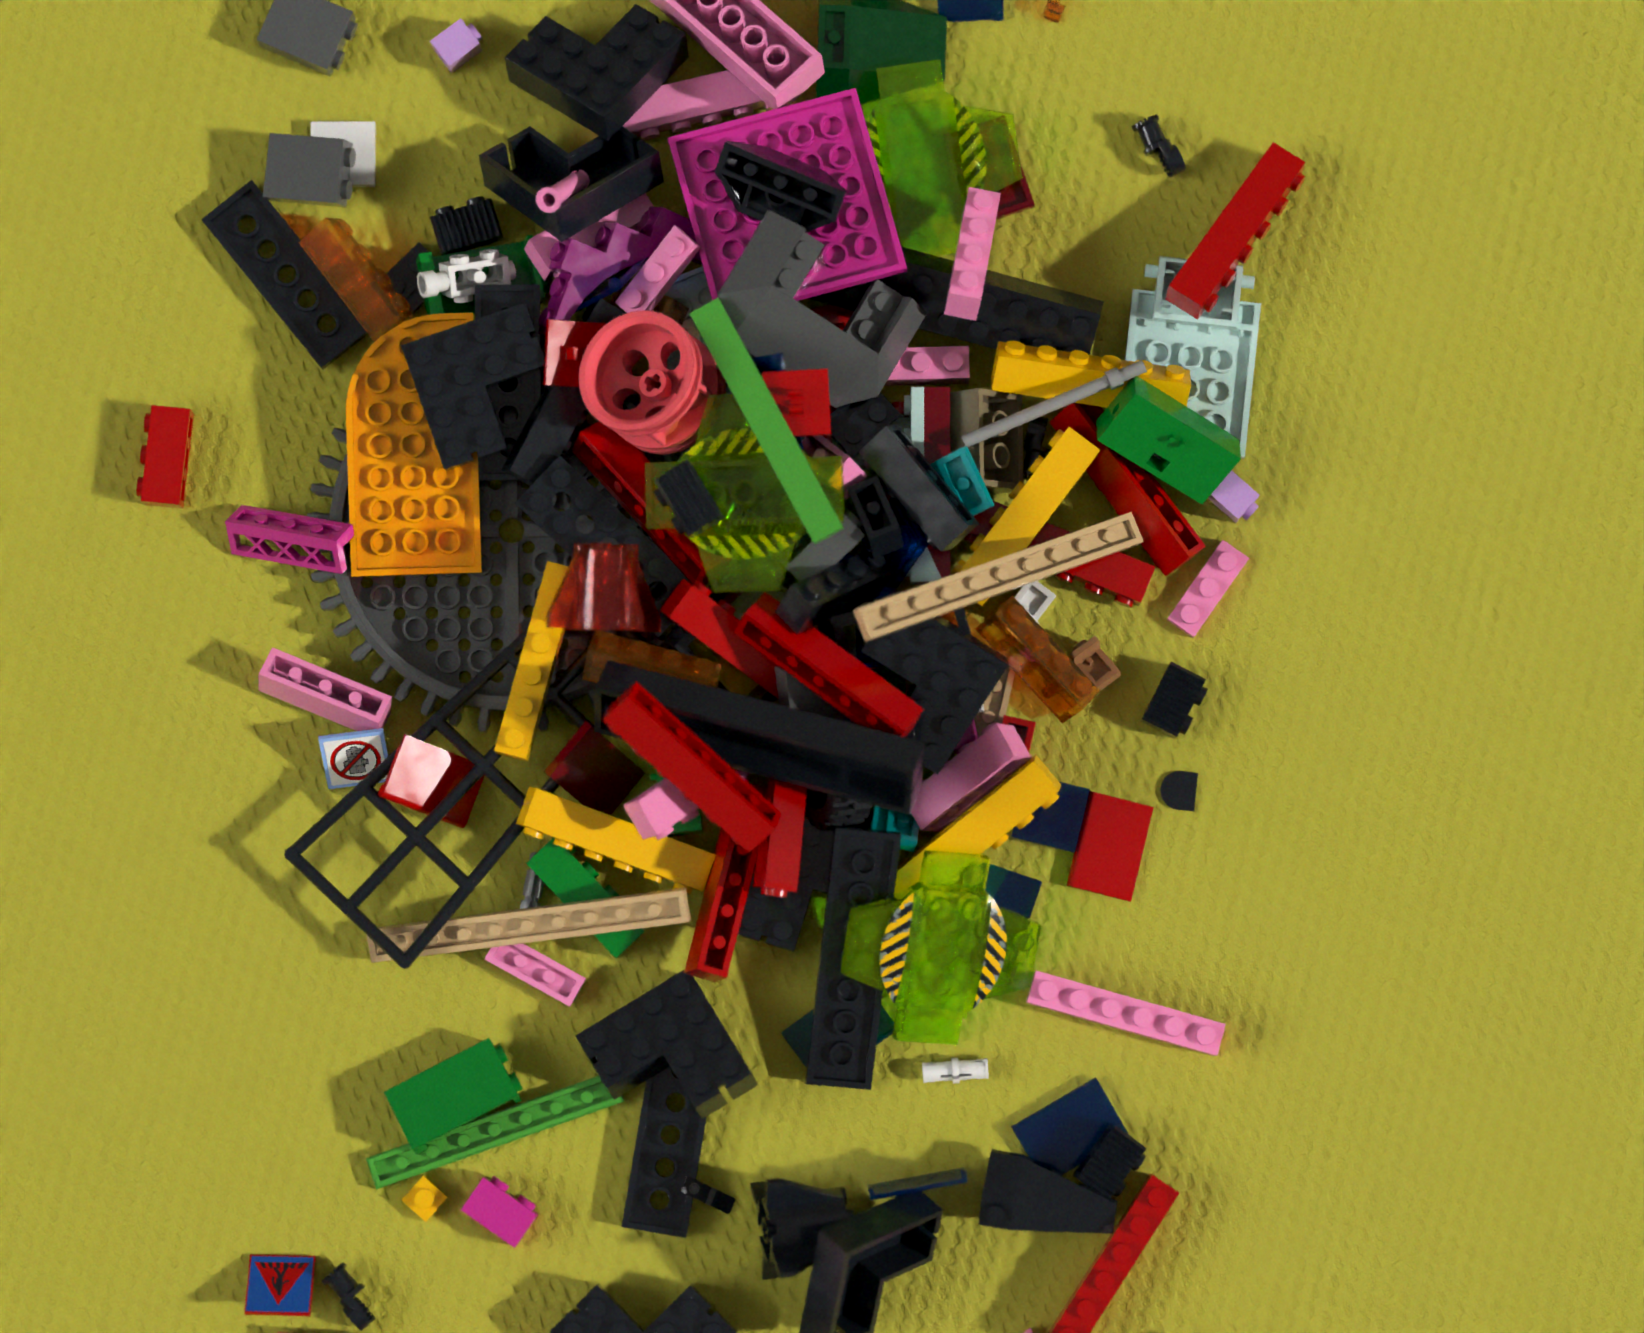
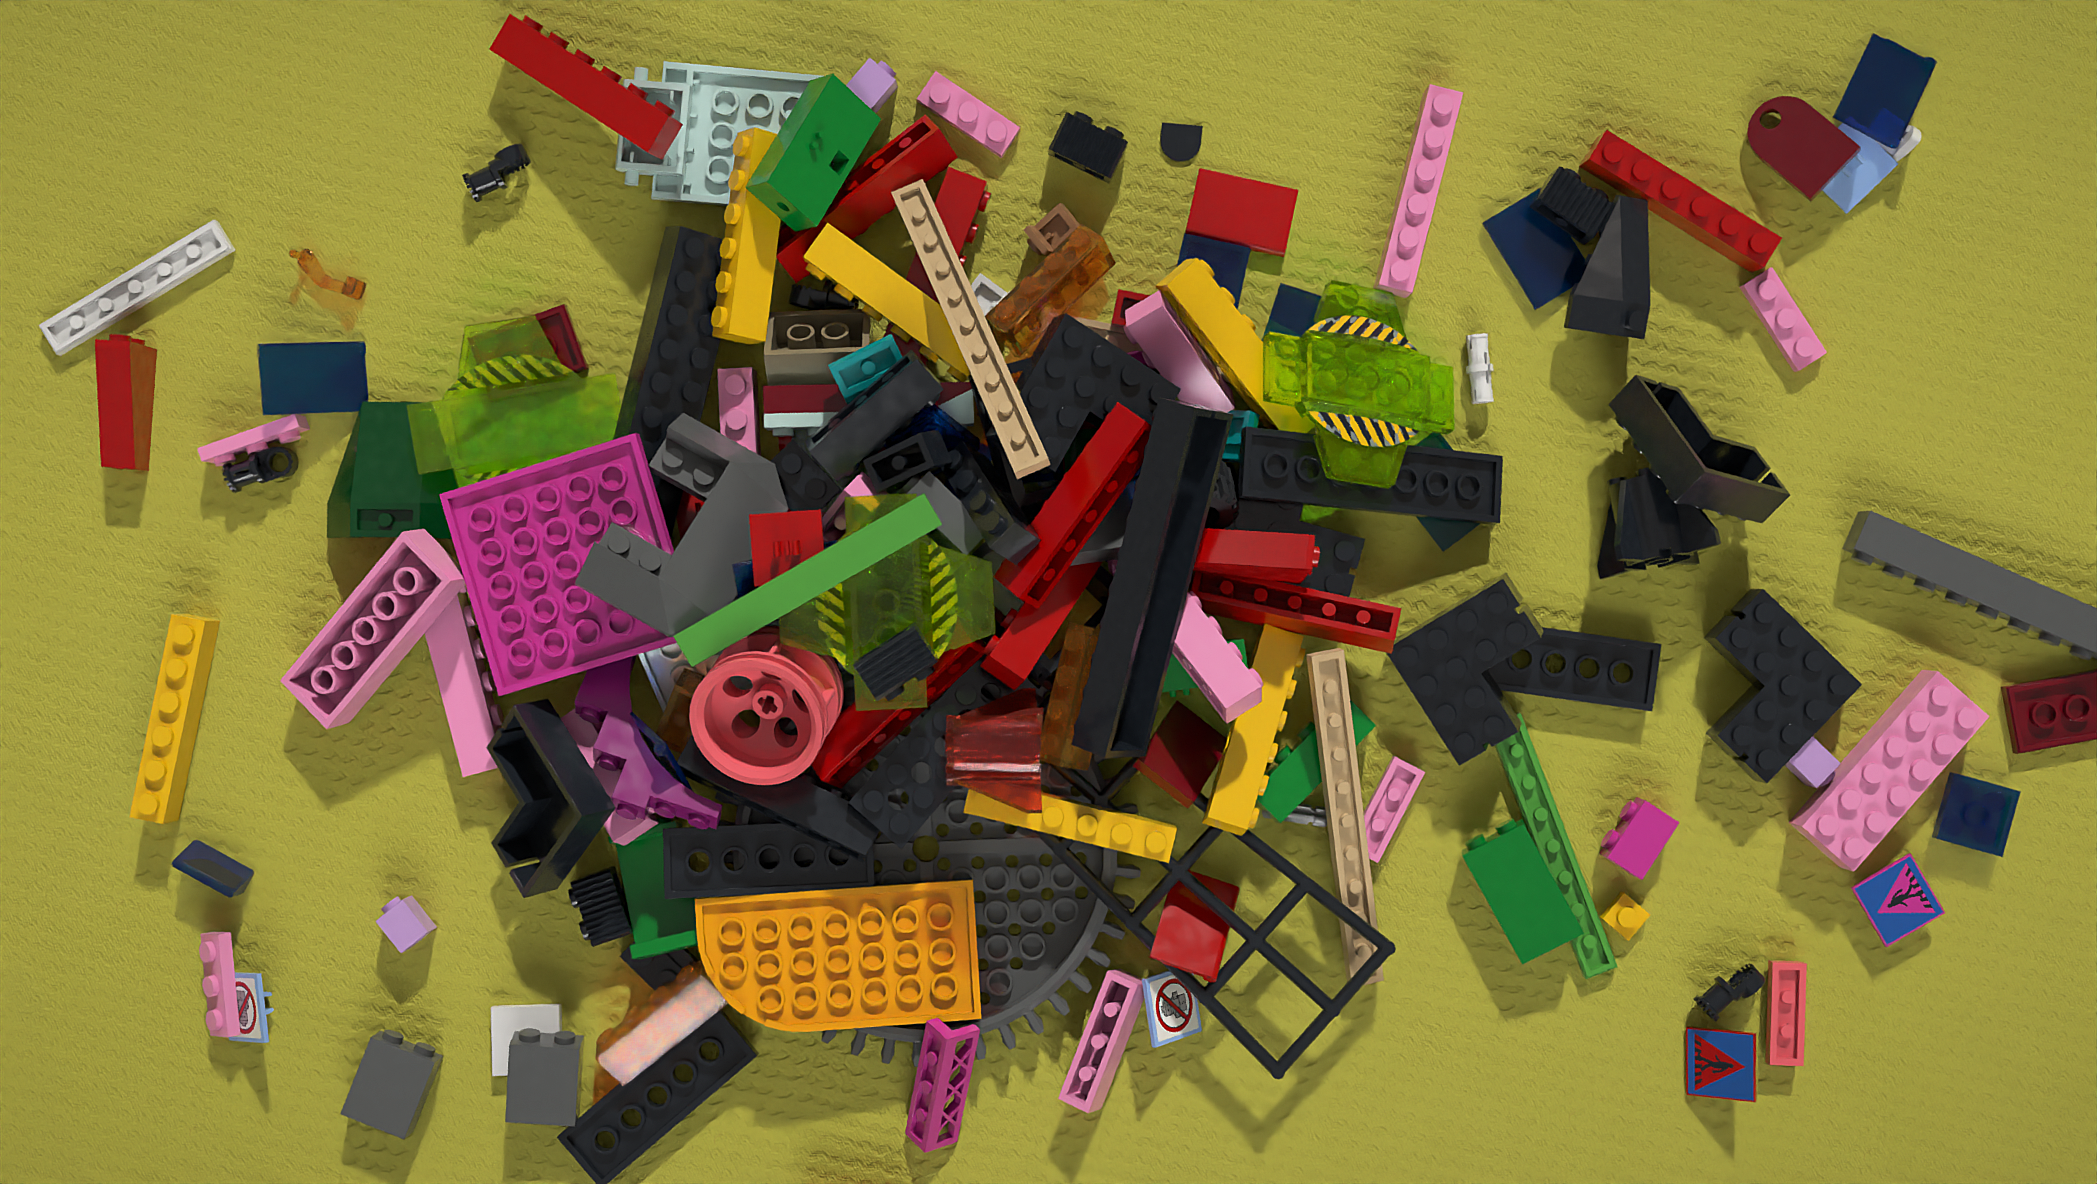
camera: 90 degrees left, 5 degrees up
(454, 375) = (766, 918): black piece -> none
(470, 274) = (653, 901): white brick -> none
(550, 198) = (567, 822): bright pink pin -> none
(565, 349) = (732, 800): red piece -> none
(603, 81) = (440, 771): black piece -> none
(659, 272) = (646, 701): bright pink plate -> none
(692, 767) = (1187, 650): red brick -> none
(708, 1195) = (1615, 622): black sticker -> none
(769, 180) = (542, 583): black wedge -> none
(917, 1183) = (1602, 404): piece -> none
(972, 253) = (618, 363): bright pink brick -> none
(1113, 379) = (751, 209): light grey bar -> none

